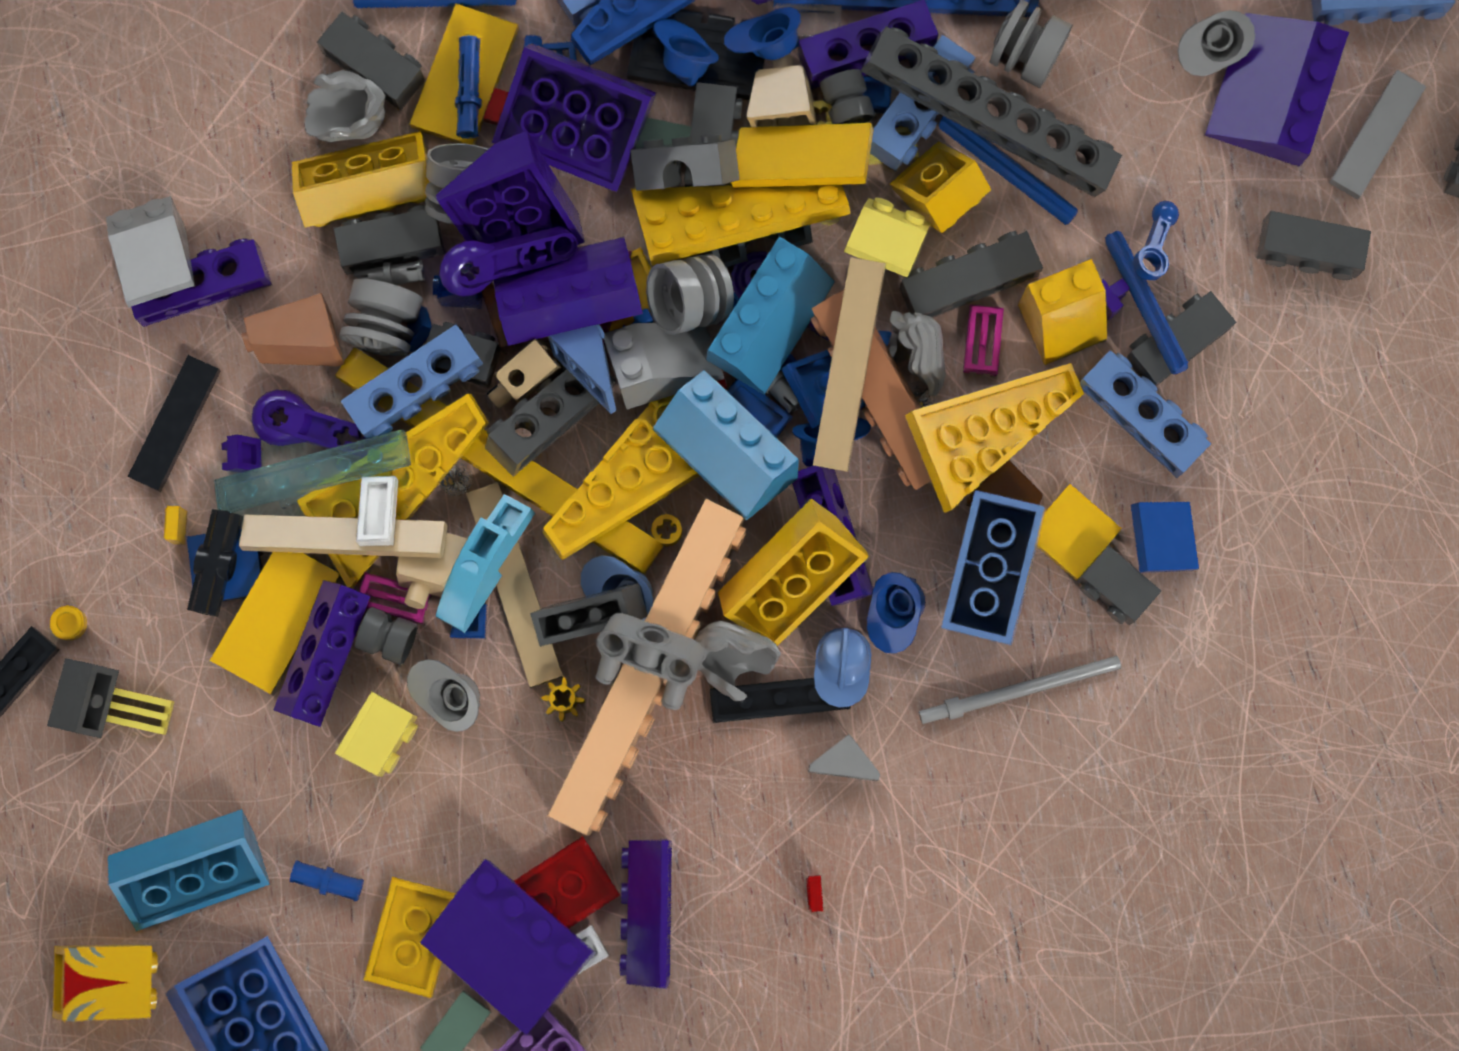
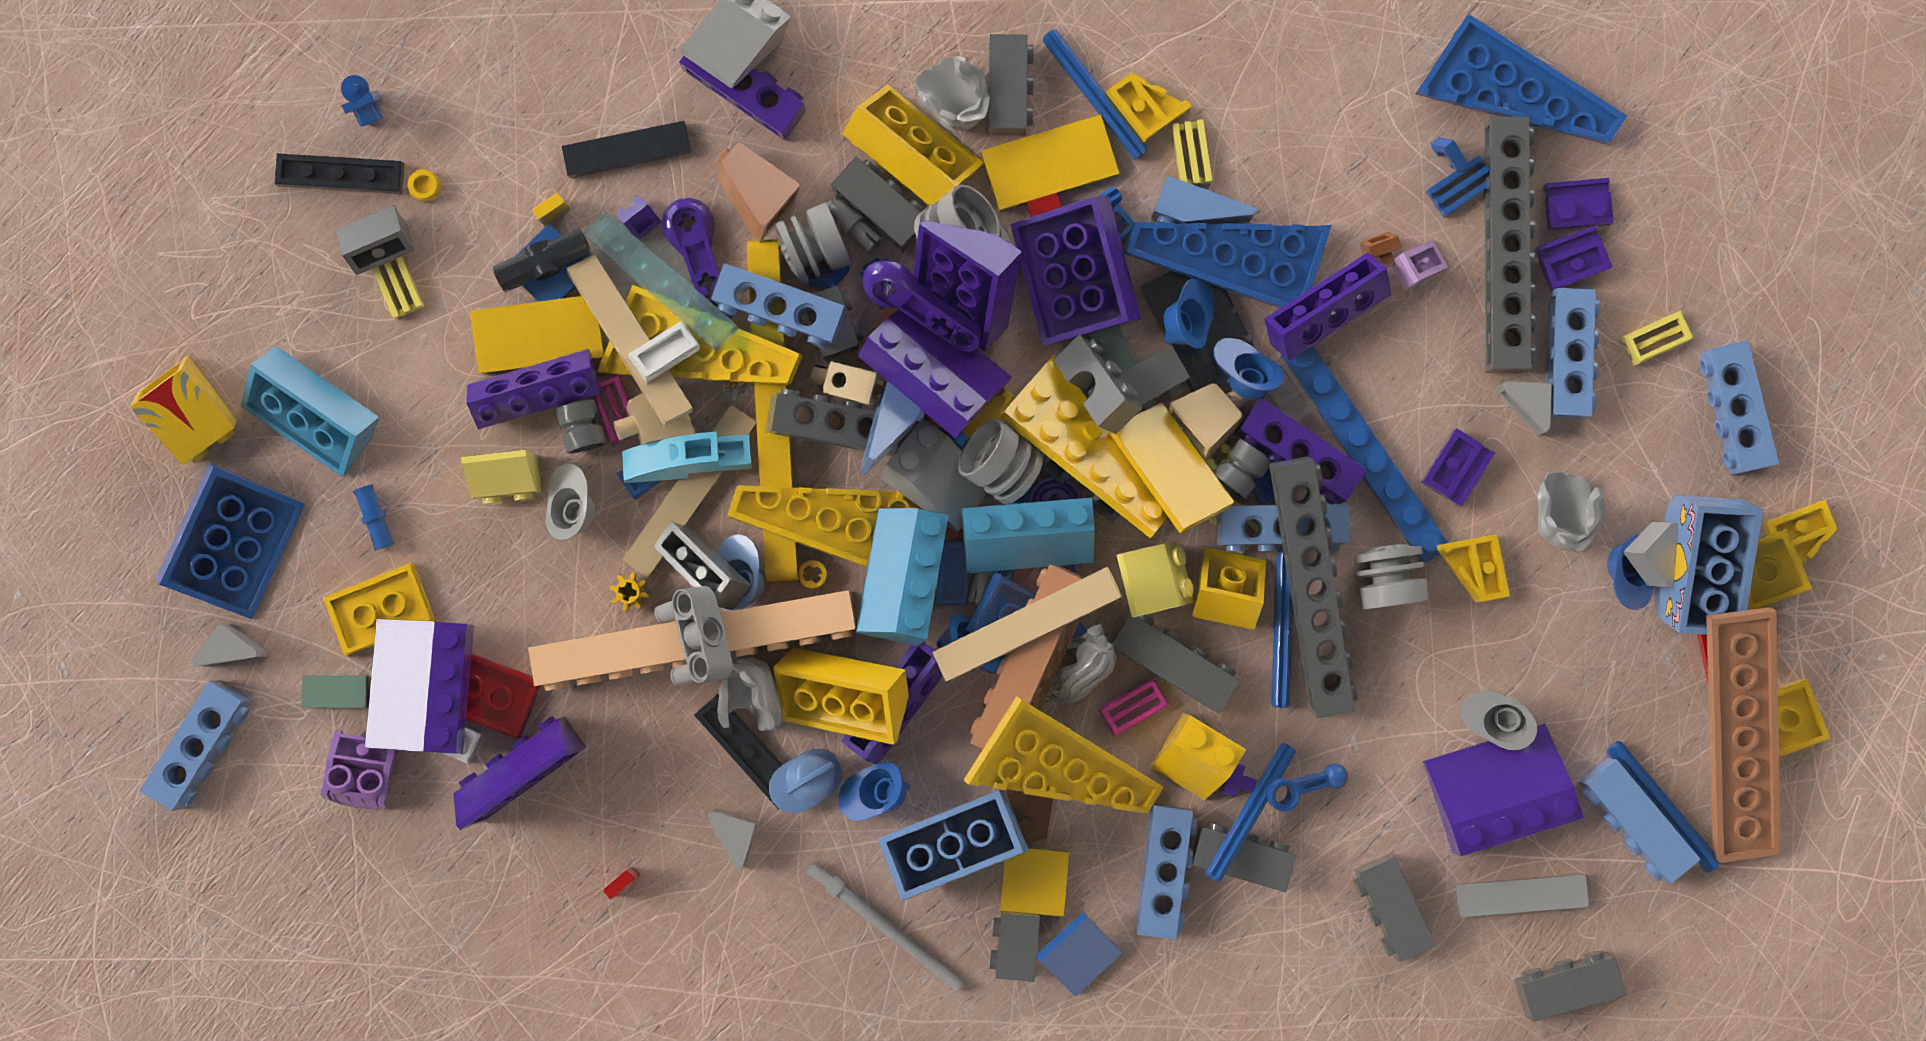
camera: 55 degrees right, 5 degrees up
(468, 98) = (1030, 181): blue pin -> none

